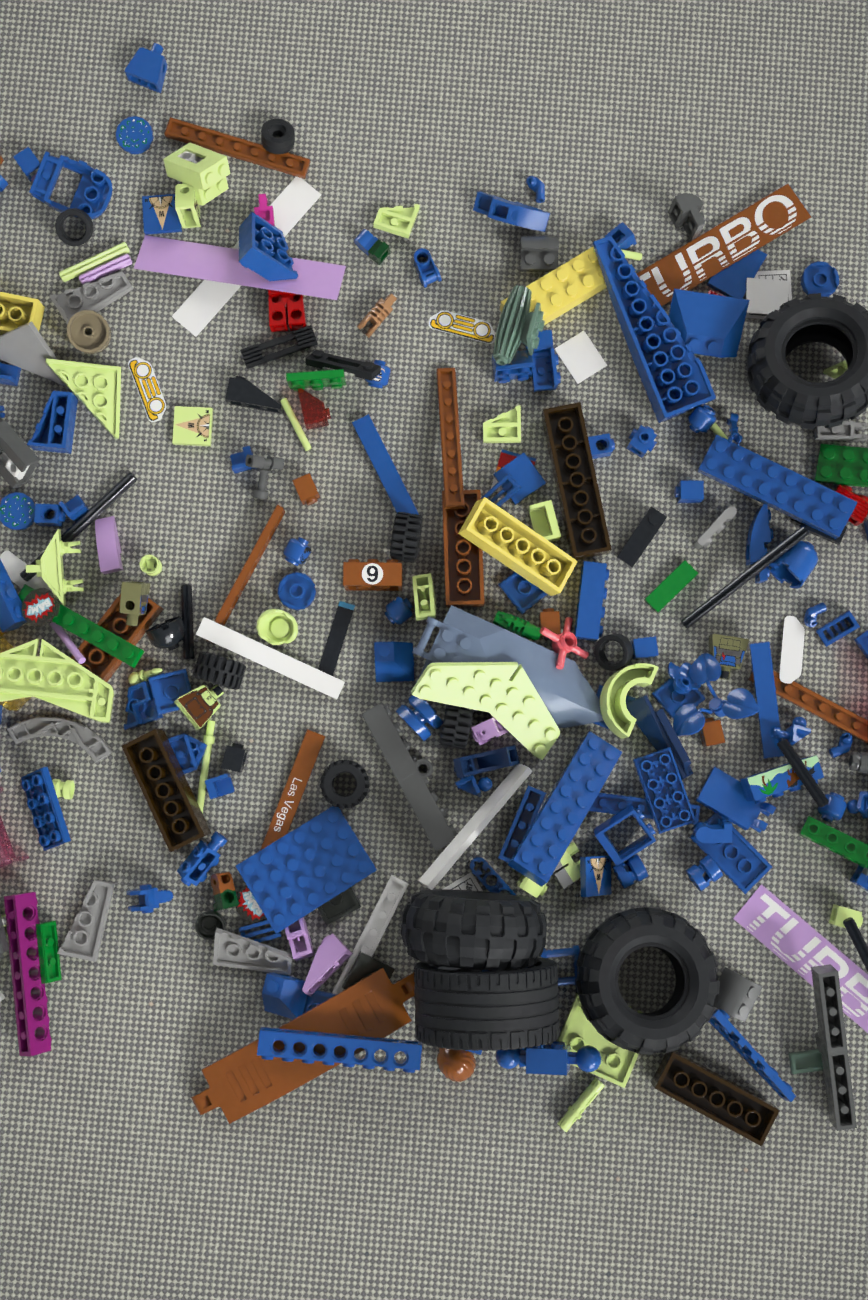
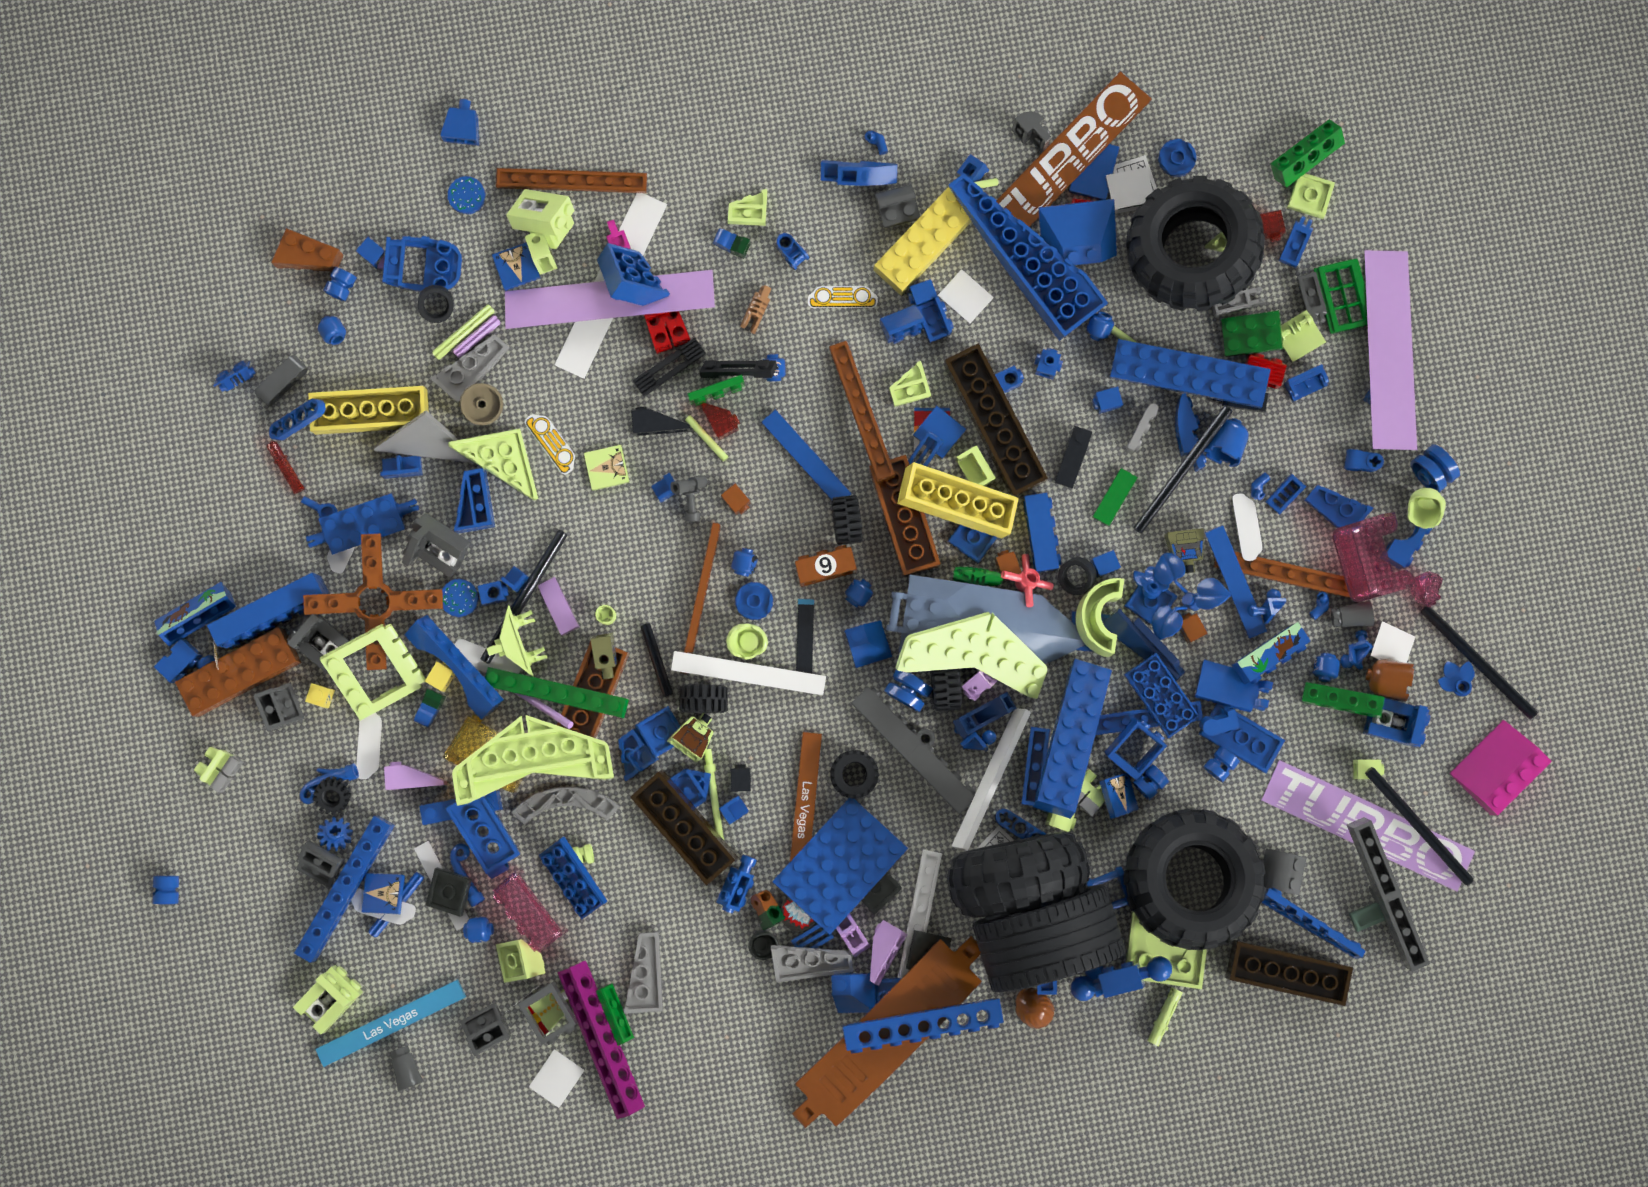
camera: 15 degrees left, 0 degrees up
(40, 607) = (513, 685): tile -> none
(141, 676) = (624, 727): yellowish green bar -> none
(149, 898) = (697, 935): blue hinge -> none
(167, 634) = (641, 677): black cylinder -> none
(277, 127) = (605, 150): black tyre -> none
(424, 596) = (881, 573): yellowish green slope -> none
(517, 326) = (898, 287): sand green plate -> none
(735, 436) = (1136, 335): blue piece -> none
(802, 772) = (1291, 644): black axle -> none

